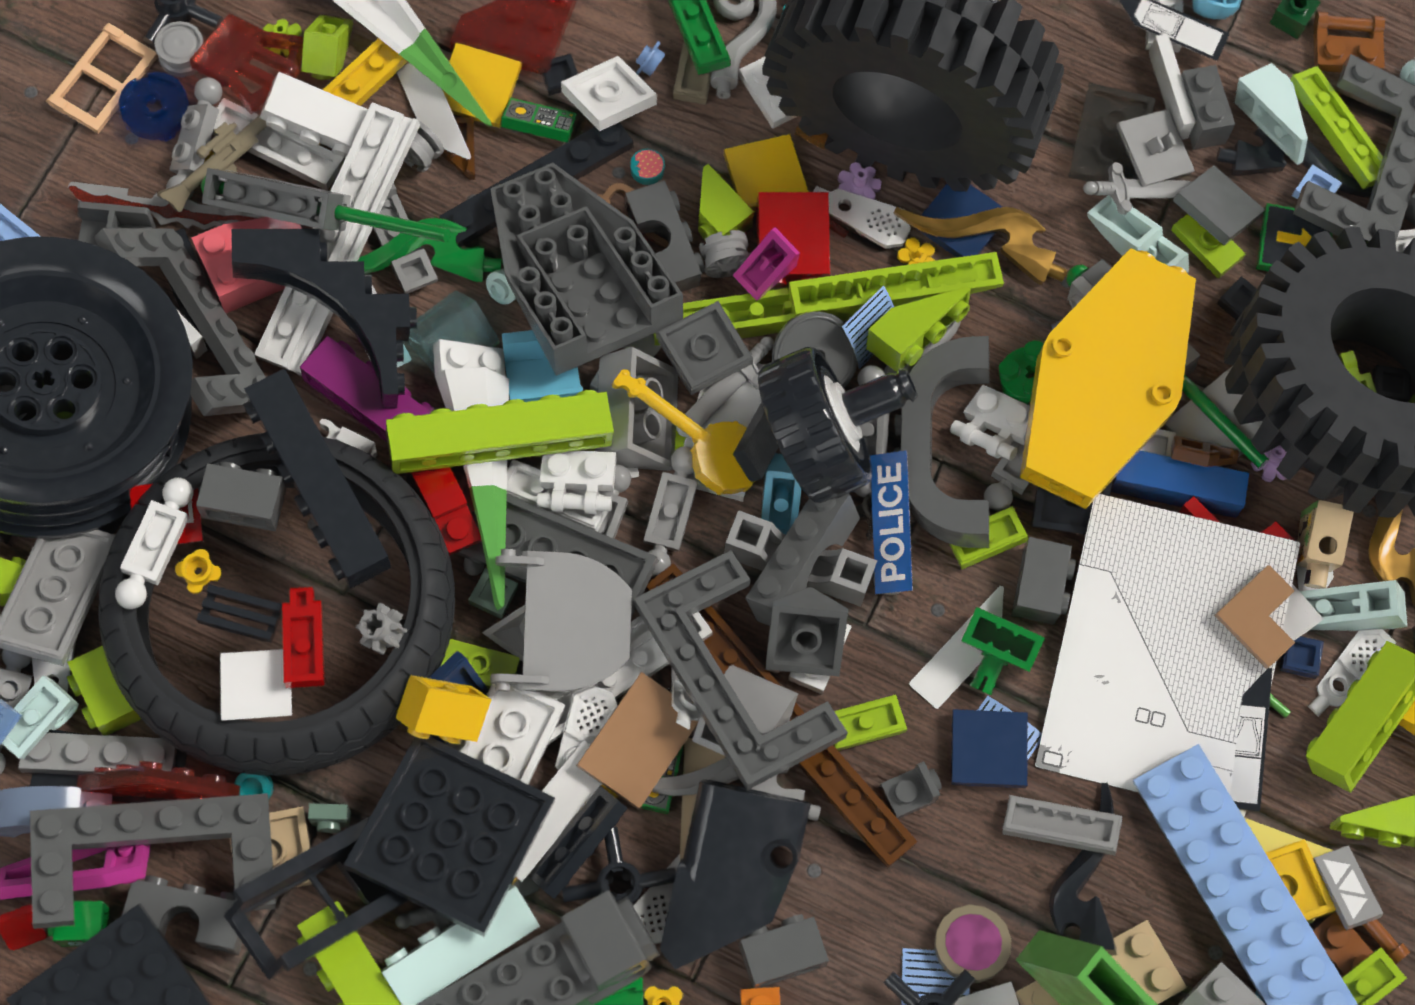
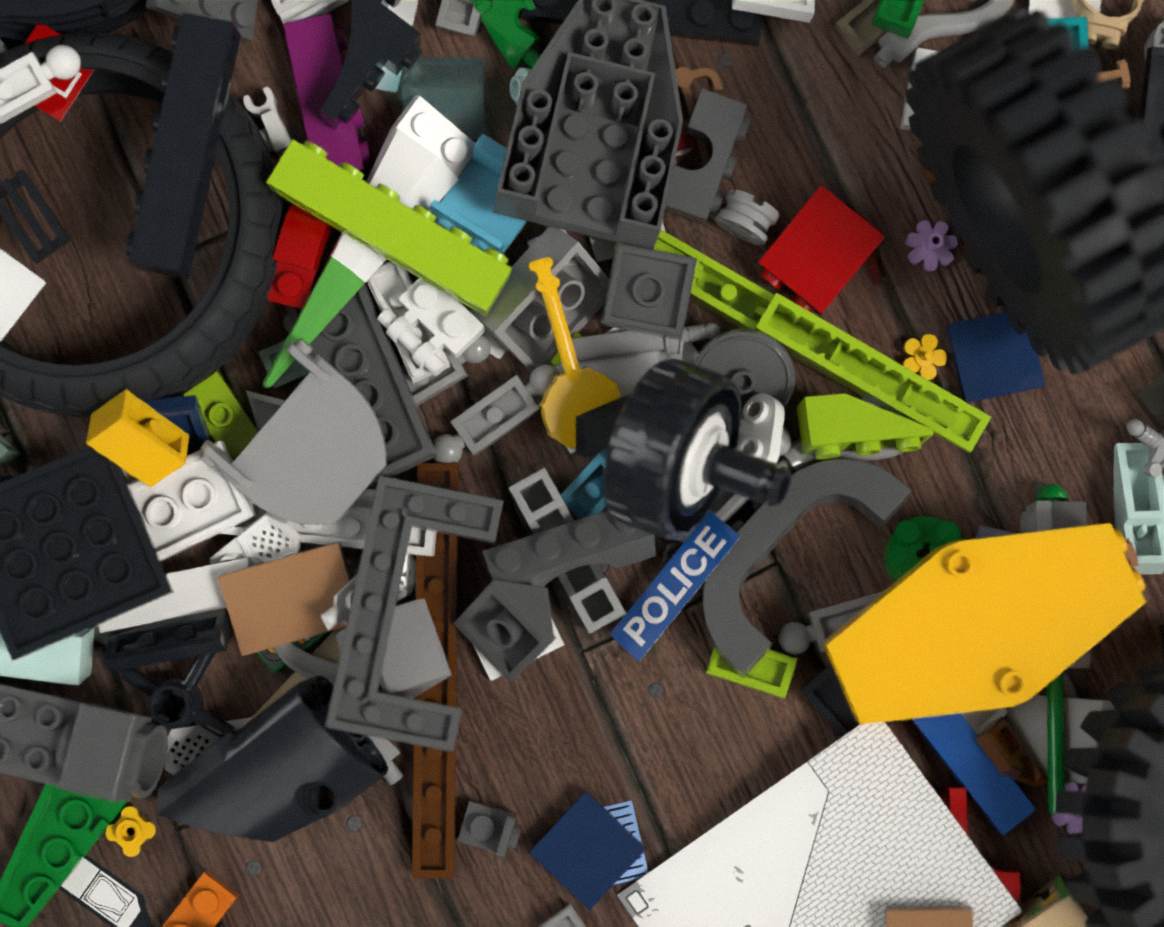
camera: 50 degrees right, 15 degrees up
(190, 563) = (14, 140): yellow plate -> none
(241, 496) = (109, 110): dark grey brick -> none
(303, 639) = (59, 283): red hinge -> none
(381, 628) = (128, 329): light grey gear -> none
(647, 166) = (753, 75): tile -> none
(721, 207) = (779, 170): lime slope -> none
(764, 167) = (855, 166): yellow tile -> none
(767, 264) = (765, 261): dark pink slope -> none
(783, 951) = (262, 874): dark grey brick -> none
(858, 325) = (817, 383): light blue sticker -> none
(858, 370) = (761, 427): none -> white plate
(862, 211) = (907, 275): white piece -> none
(871, 722) = (502, 738): lime plate -> none
(953, 661) = (643, 745): white sticker -> none
(999, 414) = (862, 564): white plate -> none
(1000, 645) = (674, 772): green brick -> none
(1015, 223) = (1037, 397): pearl gold piece -> none
(1043, 580) = (765, 746): dark grey brick -> none

